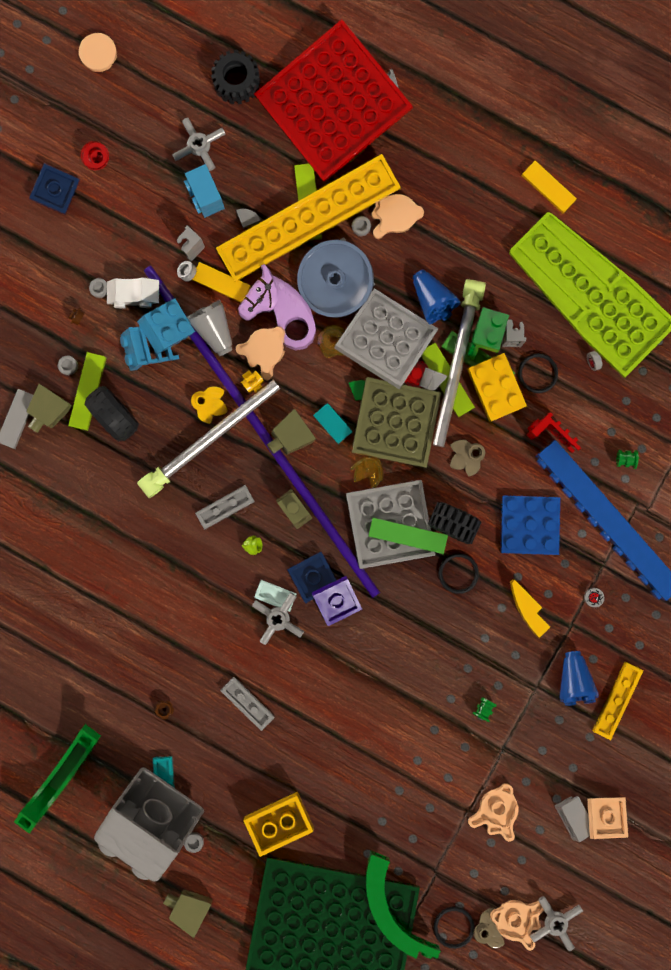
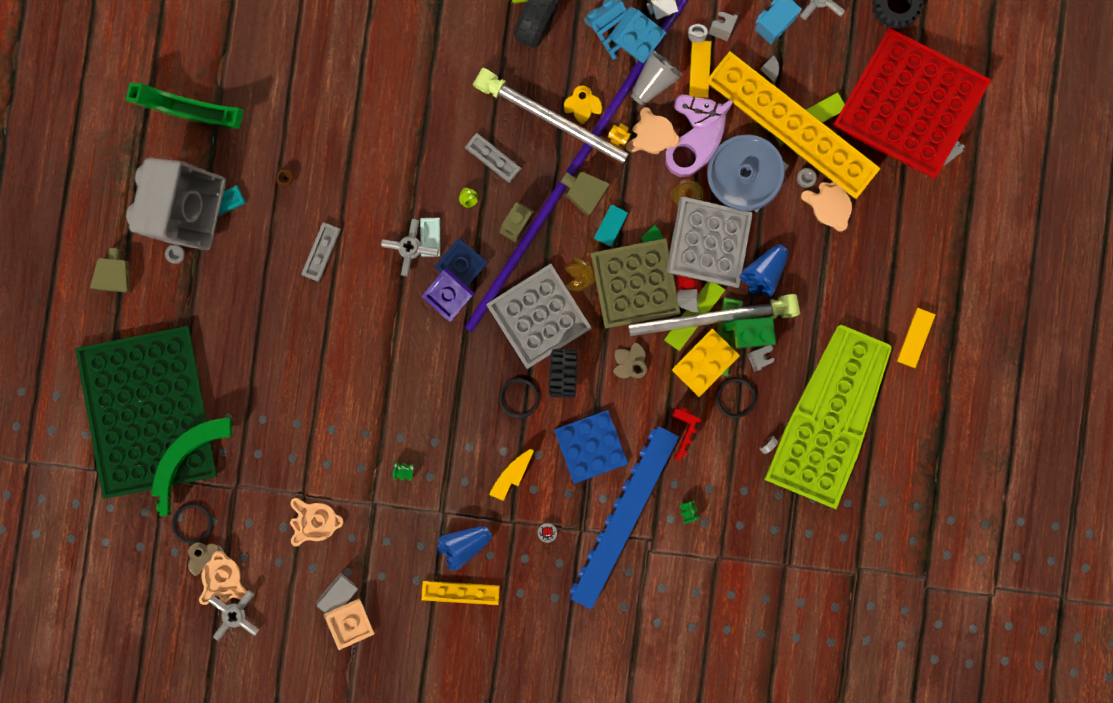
camera: 65 degrees right, 0 degrees up
(278, 824) = (223, 323): yellow brick -> none
(408, 535) = (534, 336): bright green tile -> none

